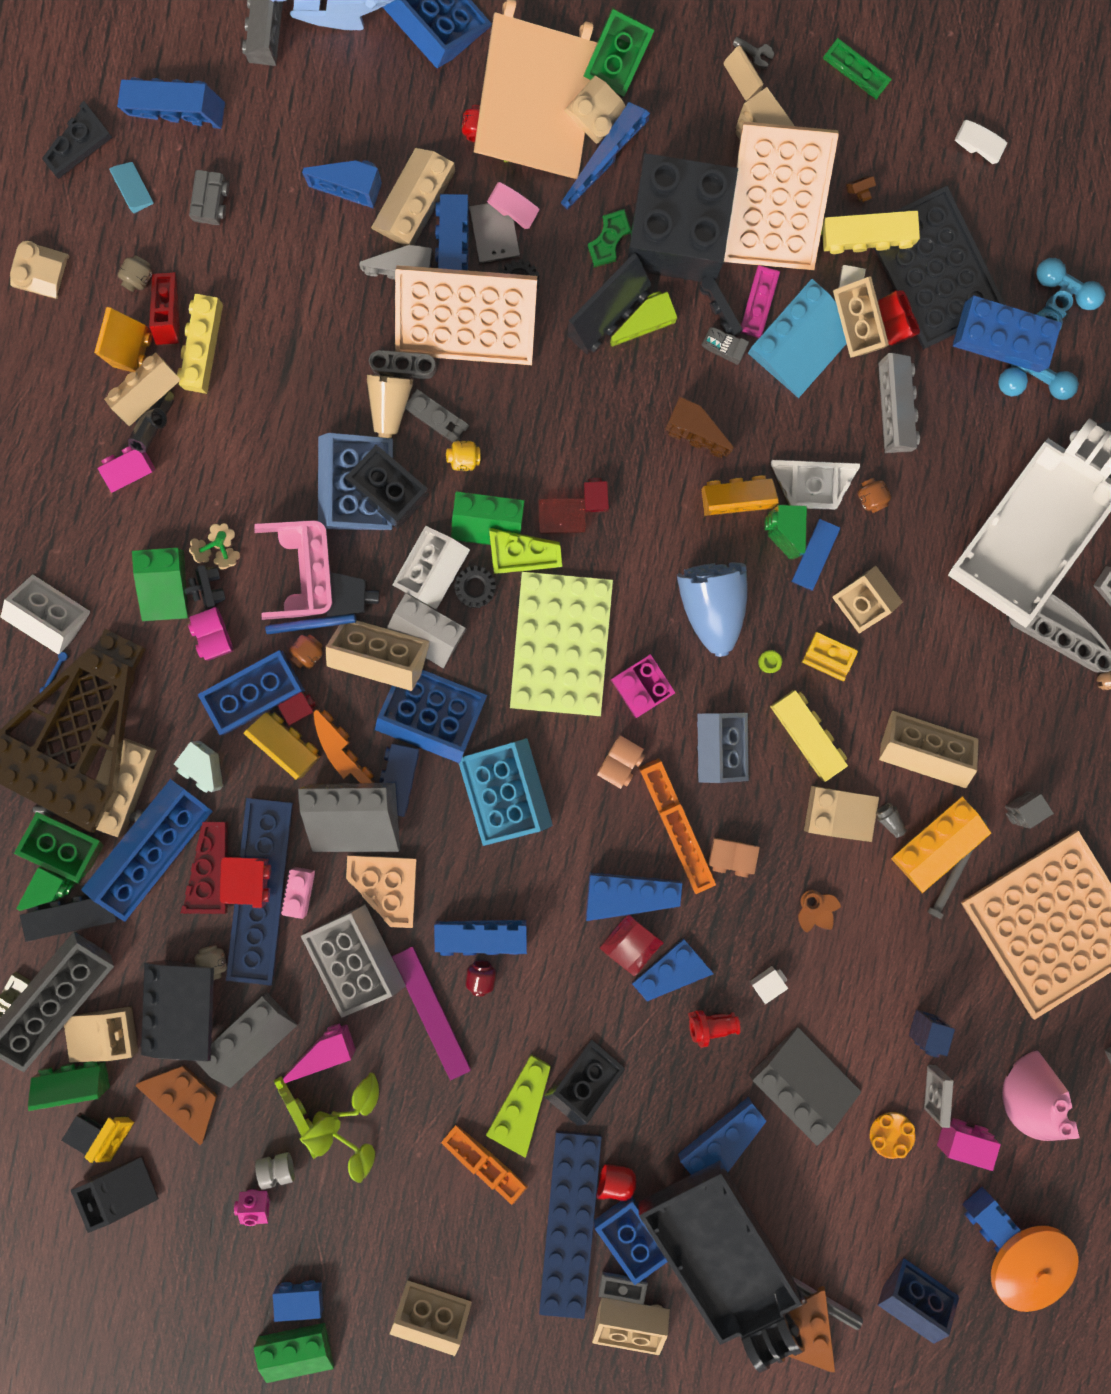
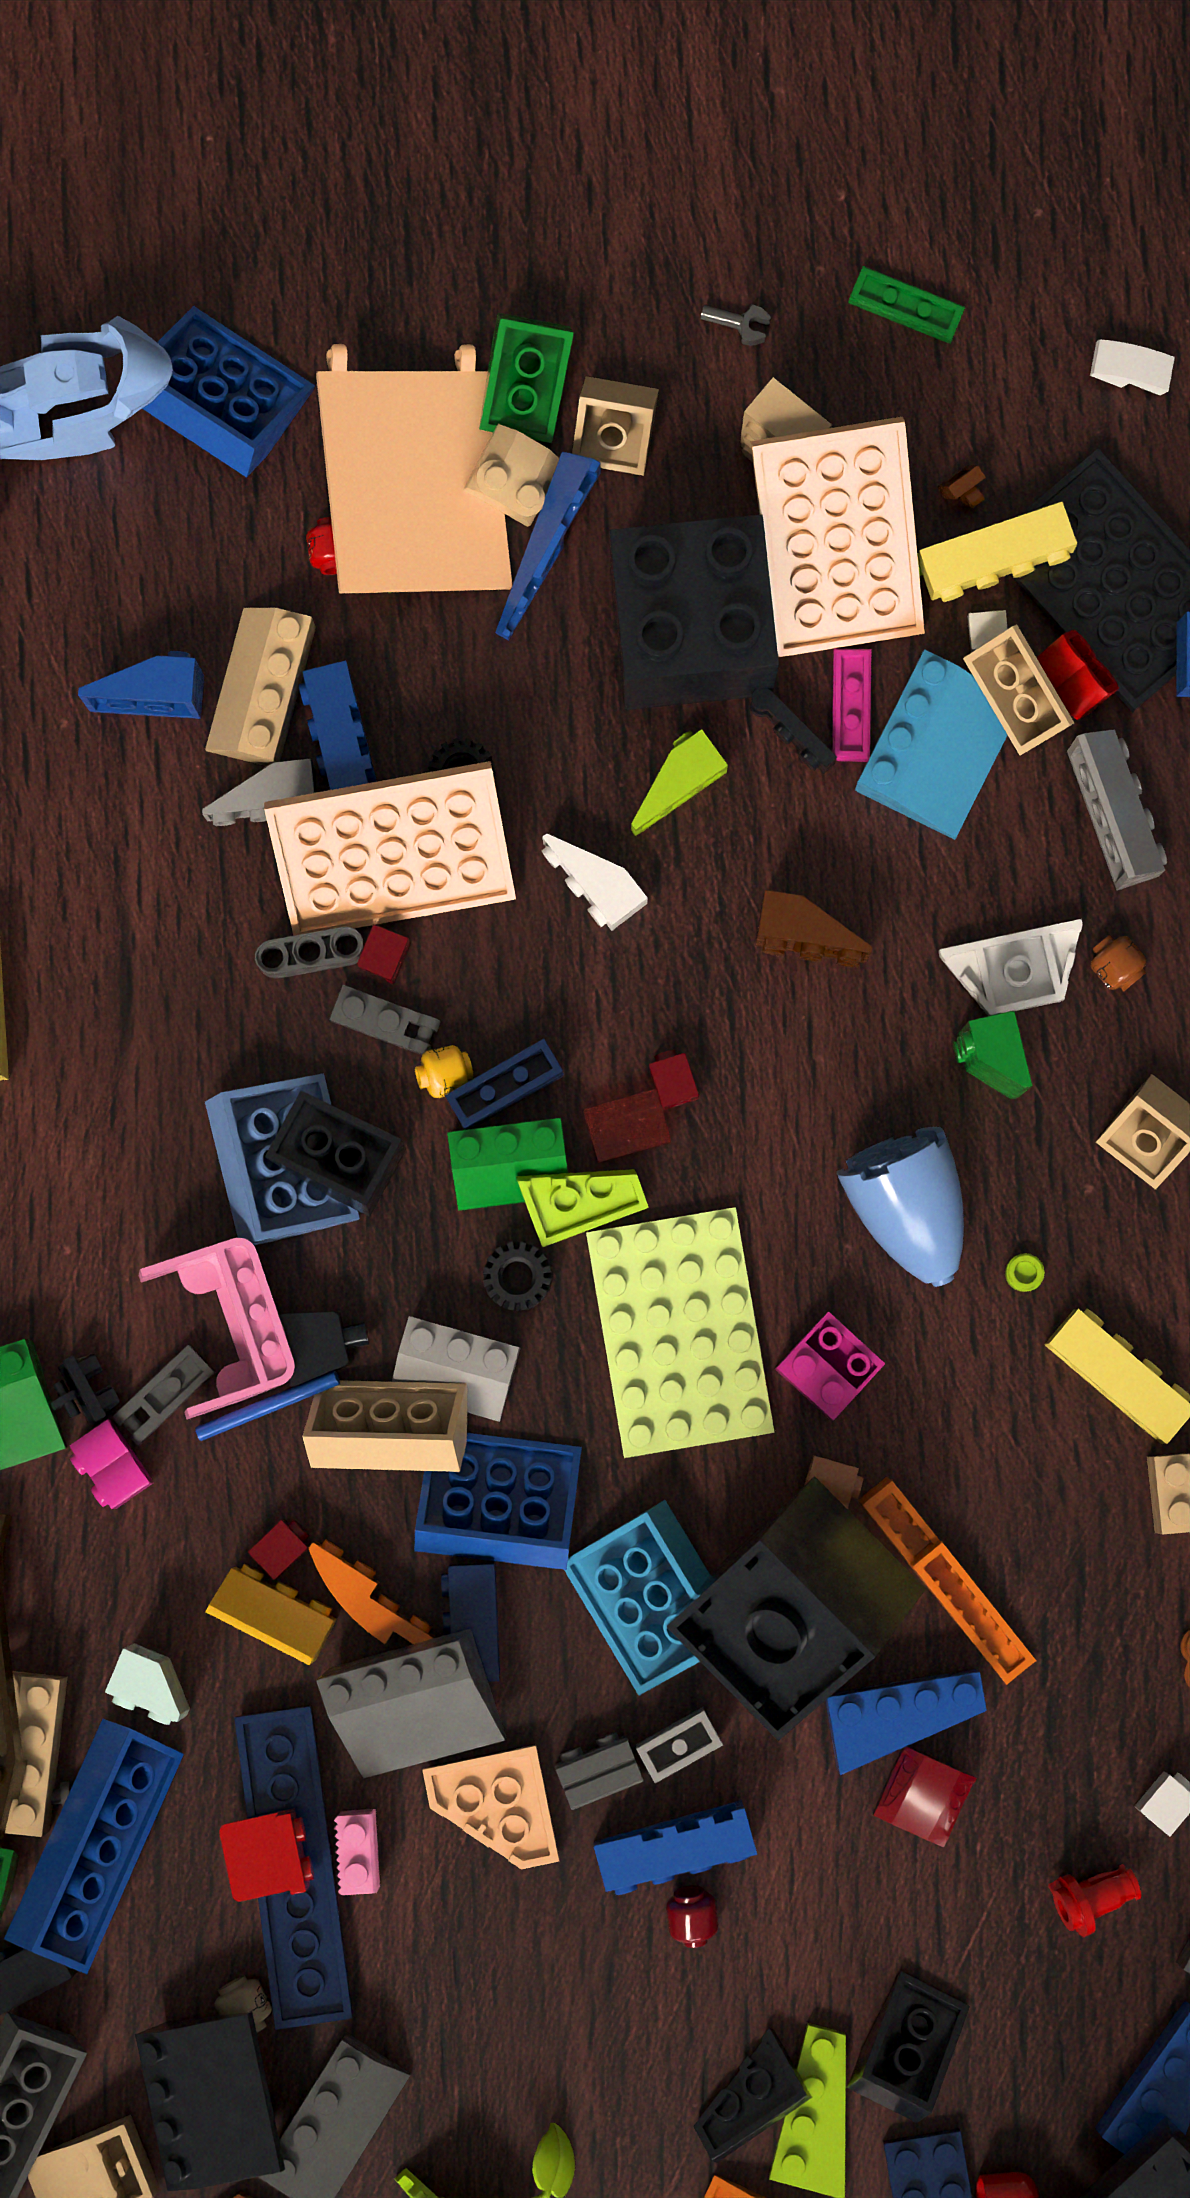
camera: 10 degrees left, 5 degrees down
(204, 884) = (200, 1871): dark red wing -> none
(221, 537) = (88, 1304): tan plant -> none
(251, 692) = (199, 1542): blue brick -> none
(252, 601) = (164, 1394): none -> dark grey plate
(305, 651) = (270, 1453): dark orange head -> none
(329, 1050) = (475, 2101): dark pink slope -> none
(353, 961) = (476, 1943): light grey slope -> none
(388, 401) = (302, 1018): tan cone -> none
(431, 567) = (438, 1263): white slope -> none
(431, 1013) = (626, 1996): magenta tile -> none
(446, 376) = (384, 953): none -> dark red panel
(448, 882) = (598, 1771): none -> dark grey brick
(488, 1090) = (753, 2101): none -> black wing
(493, 234) = (402, 704): light grey container -> none
(496, 472) = (505, 1085): none -> dark blue brick
(498, 880) = (678, 1745): none -> light grey brick
(513, 204) = (421, 656): bright pink slope -> none
(586, 369) = (603, 883): none -> white slope
(586, 820) = (797, 1609): none -> black piece
(609, 305) = (616, 775): black slope -> none
(614, 229) = (582, 685): green tile -> none
(665, 94) = (615, 424): none -> tan slope
(672, 971) = (1002, 1824): blue wing -> none
(722, 747) = (986, 1432): sand blue slope -> none
(725, 345) = (815, 788): dark grey leg -> none
(733, 856) = (1051, 1606): nougat brick -> none
(739, 496) = (902, 1020): light orange slope -> none
(743, 73) = (730, 359): tan slope -> none
(815, 554) = (1050, 1081): blue tile -> none
(829, 656) = (1118, 1239): yellow plate -> none

